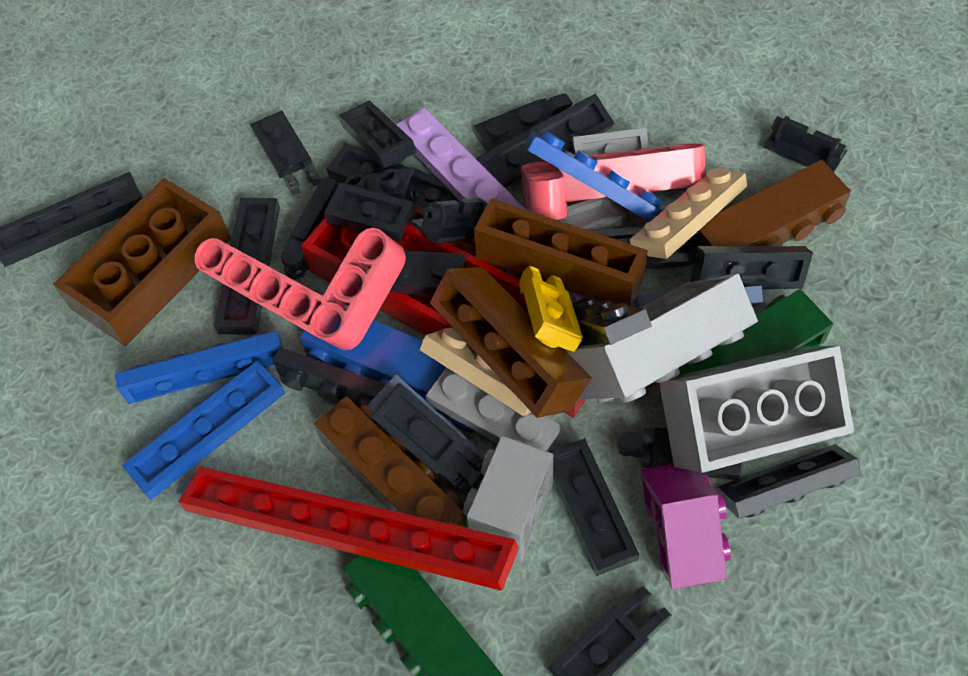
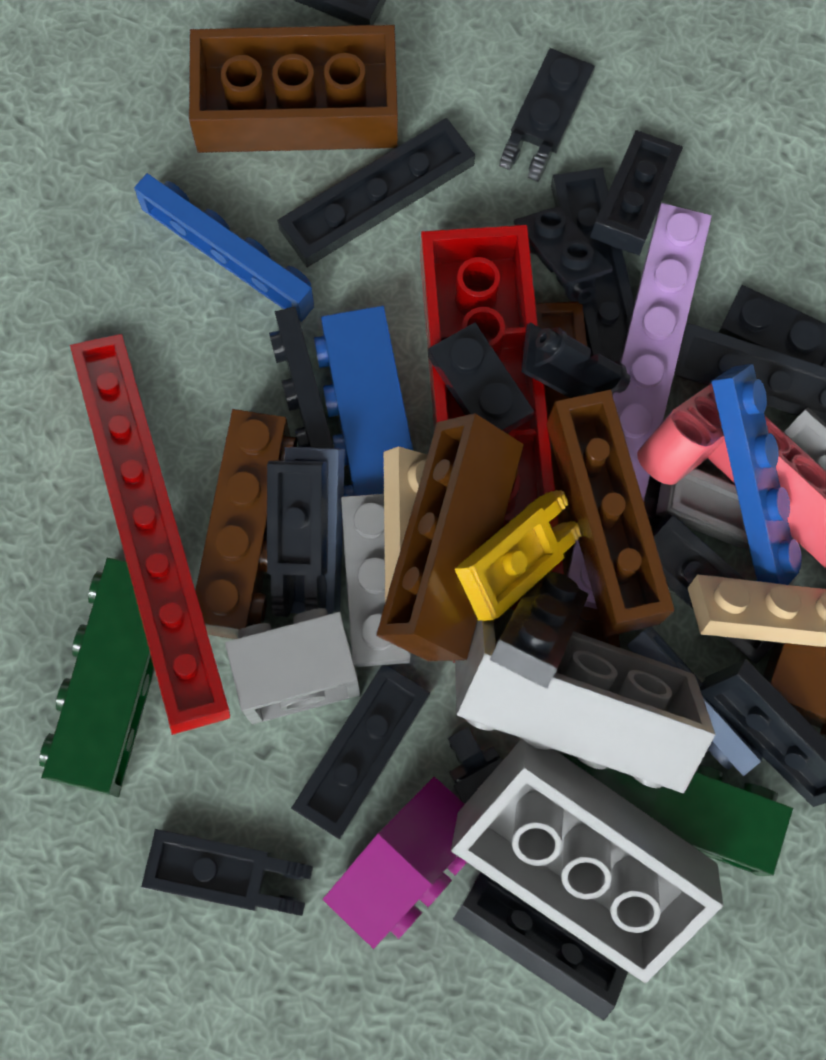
camera: 45 degrees right, 15 degrees up
(203, 430) = (164, 304): blue plate -> none
(292, 299) = (349, 326): coral beam -> none
(293, 256) = (485, 210): black hinge -> none
(367, 209) = (509, 270): black plate -> none

